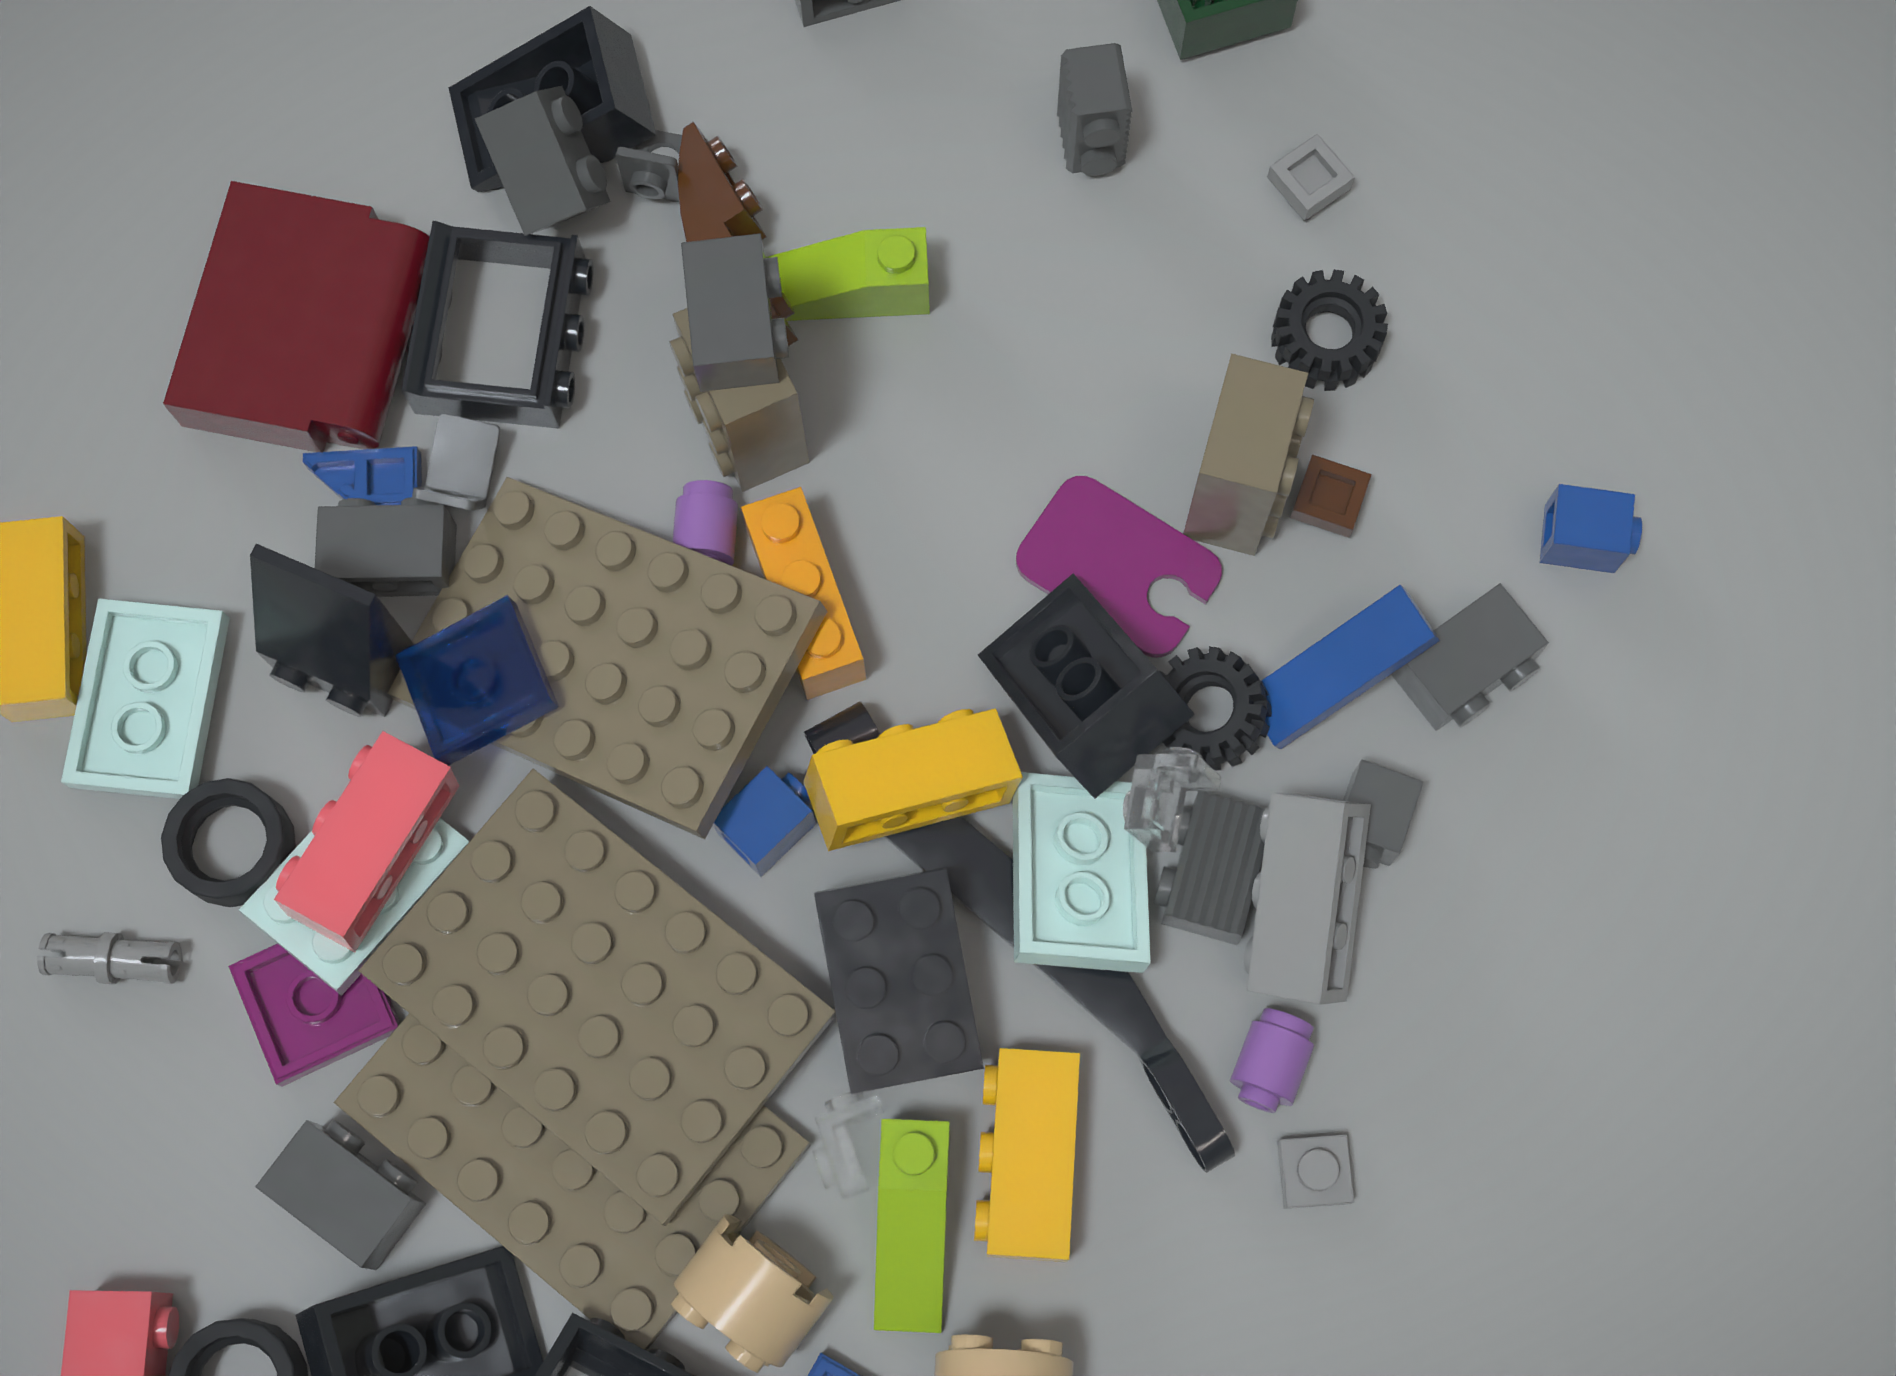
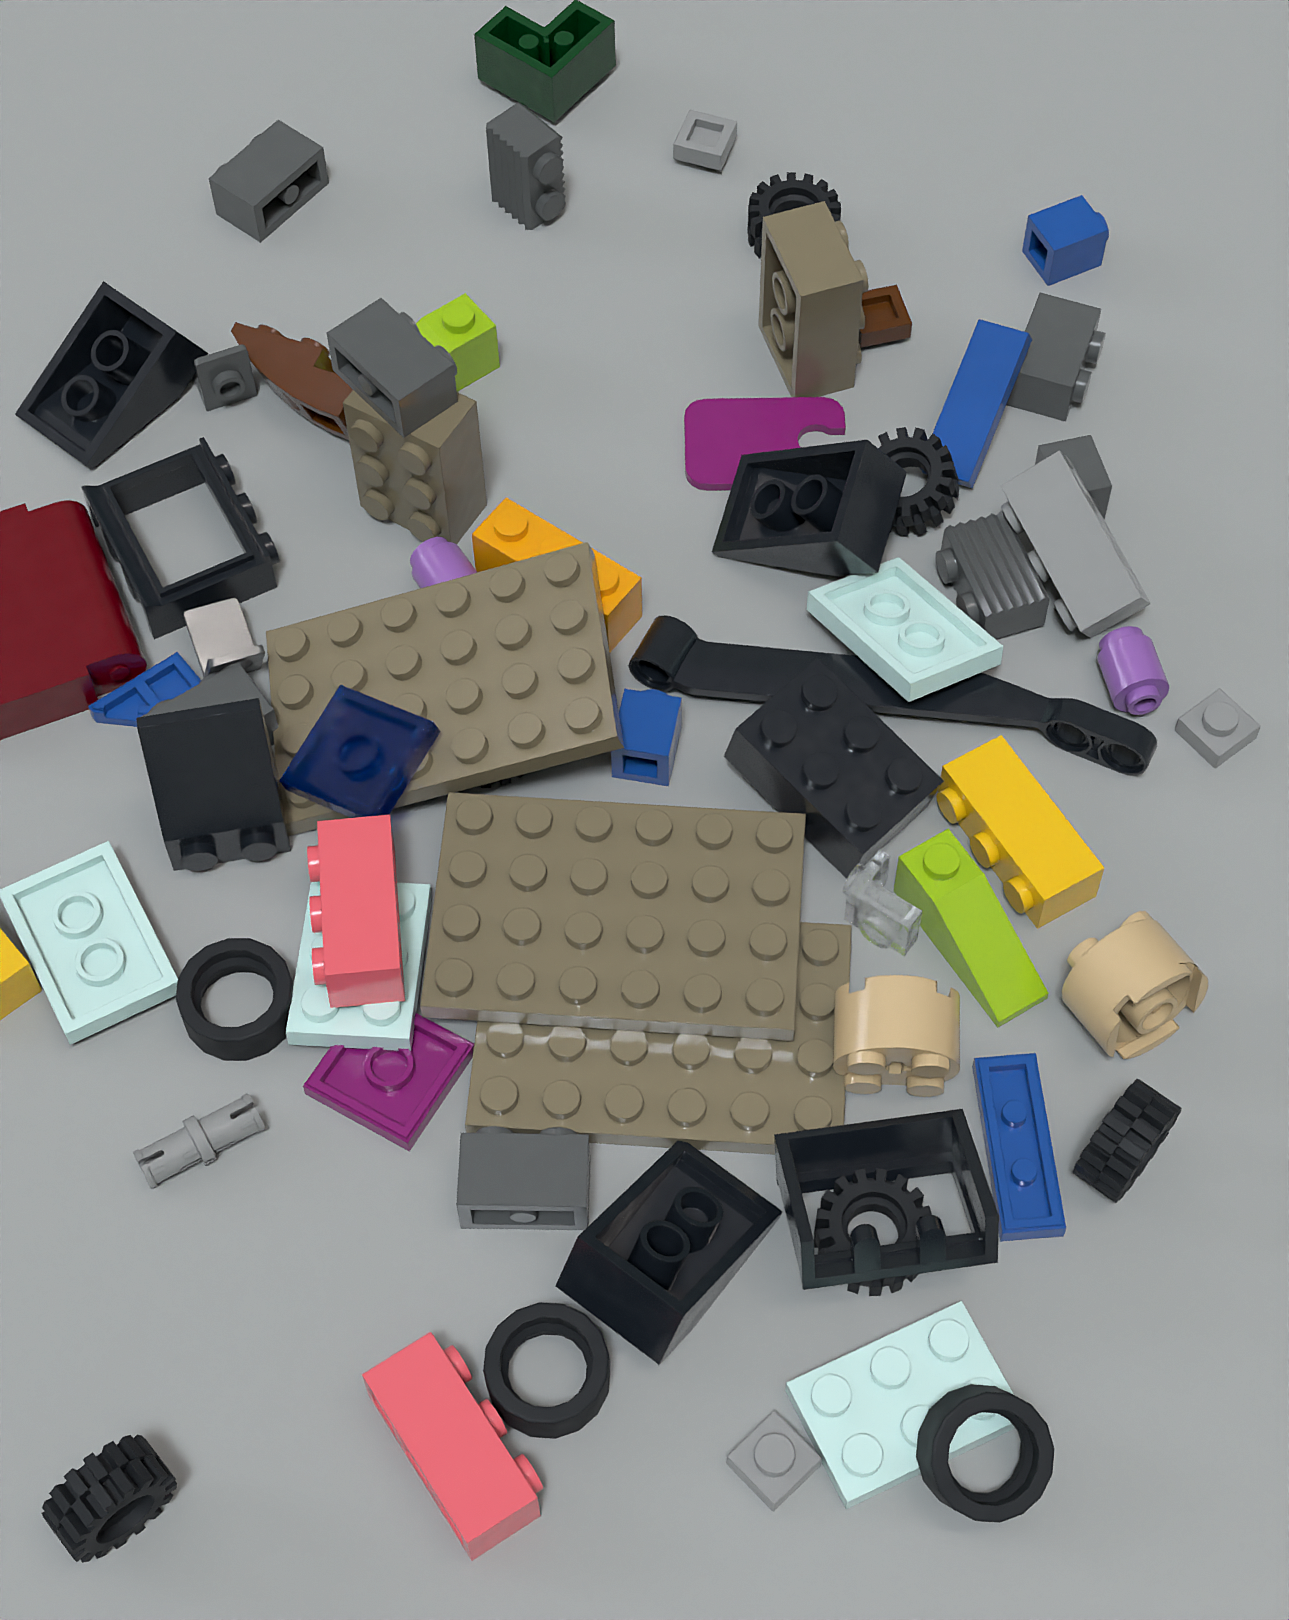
camera: 35 degrees left, 15 degrees down
(543, 159) = (144, 395): dark grey brick -> none
(911, 777) = (737, 633): yellow brick -> none
(1158, 795) = (917, 526): clear bracket -> none

